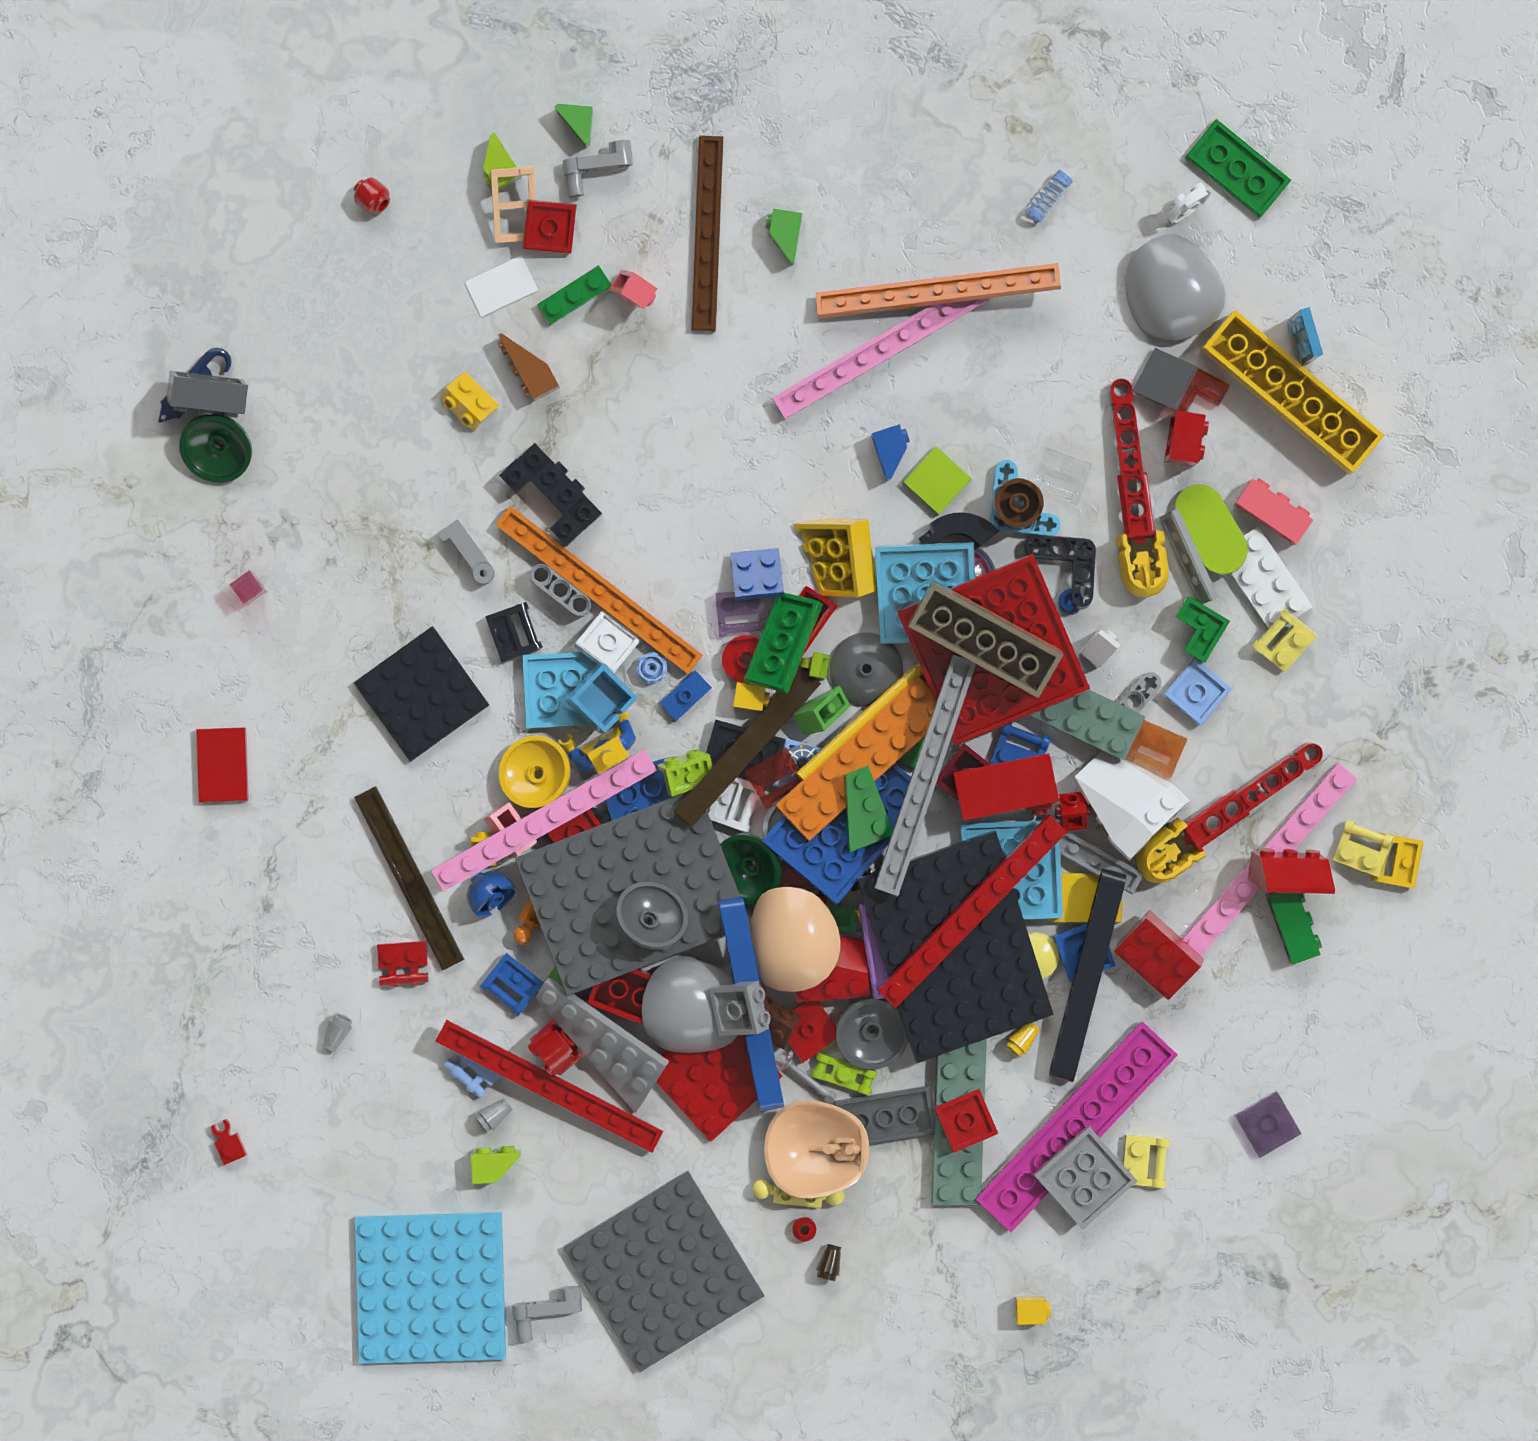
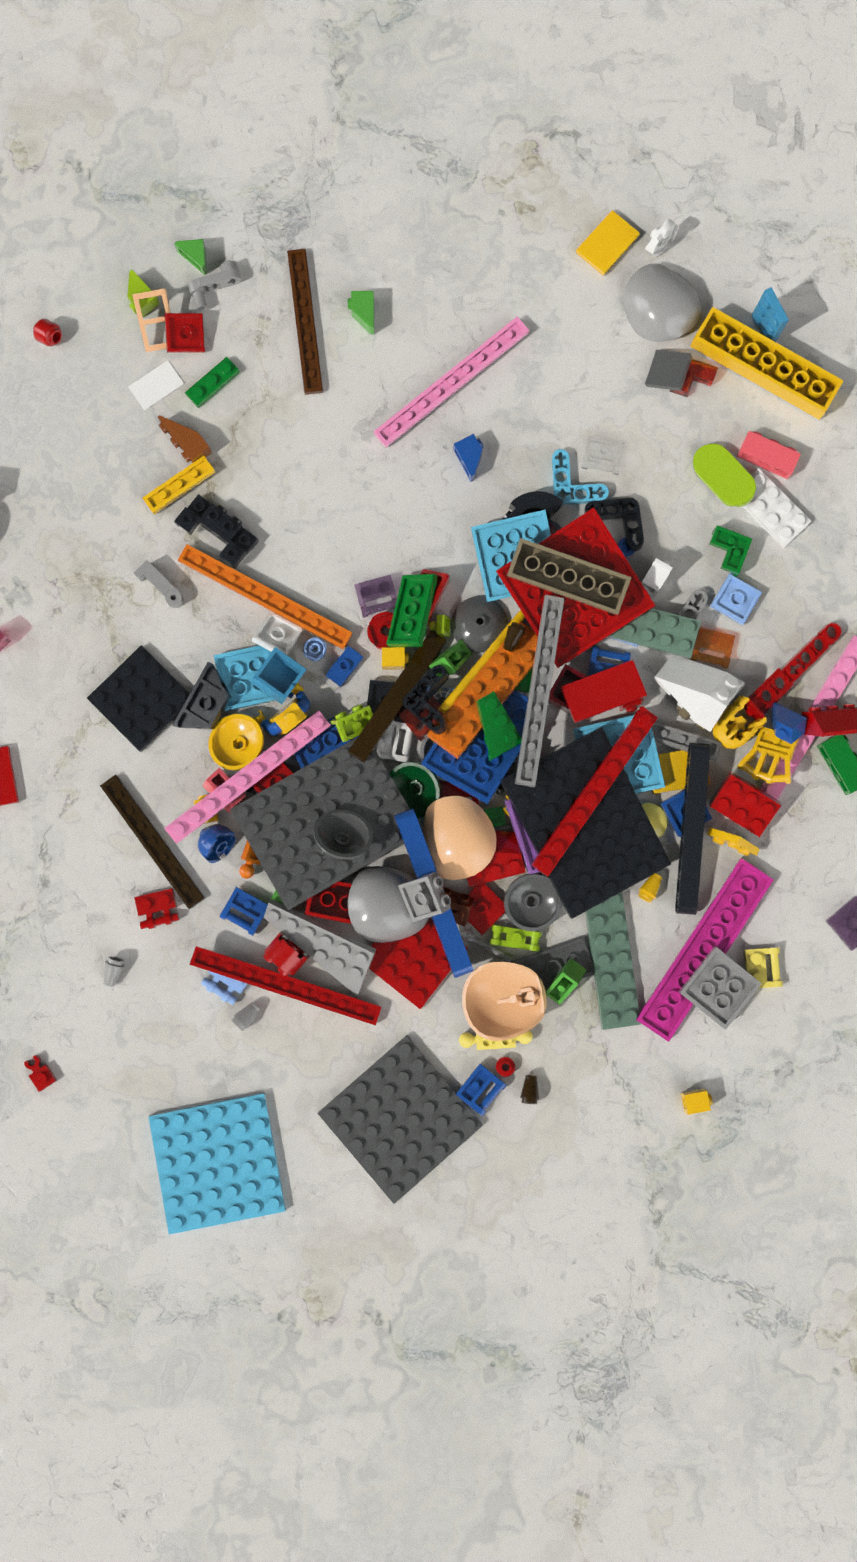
camera: 15 degrees left, 5 degrees down
(468, 401) = (143, 472): yellow bracket -> none
(490, 1165) = (250, 1057): lime slope -> none
(503, 713) = (204, 702): none -> black wing
(506, 635) = (198, 642): black plate -> none
(511, 425) = (178, 485): none -> yellow plate
(555, 579) = (228, 595): light grey beam -> none
(568, 1302) = (328, 1156): light grey beam -> none
(633, 289) = (255, 366): coral piece -> none
(757, 574) = (384, 565): plate -> none
(766, 1244) = (476, 1084): none -> blue plate
(774, 764) = (421, 704): none -> black beam
(840, 555) = (445, 540): yellow wedge -> none
(896, 1138) = (565, 981): none -> bright green slope
(905, 697) = (513, 636): none -> dark brown cone
(937, 480) = (509, 474): lime tile -> none
(938, 290) = (486, 331): orange plate -> none
(966, 1120) = (618, 958): red plate -> none
(1026, 492) = (578, 467): reddish brown brick -> none
(1064, 179) = (549, 266): light blue piece -> none
(1072, 811) = (658, 703): red brick -> none
(1118, 193) = (607, 242): none -> yellow tile
(1135, 527) = (669, 483): red piece -> none
(1135, 1001) = (733, 841): none -> yellow plate
(1185, 438) = (692, 409): red brick -> none
(1188, 556) = (710, 497): light grey tile -> none
(1210, 886) = (773, 746): none -> yellow plate
(1230, 864) = (787, 723): none -> blue slope
(1238, 168) = (693, 211): green tile -> none
(1290, 645) = (800, 552): light yellow plate -> none

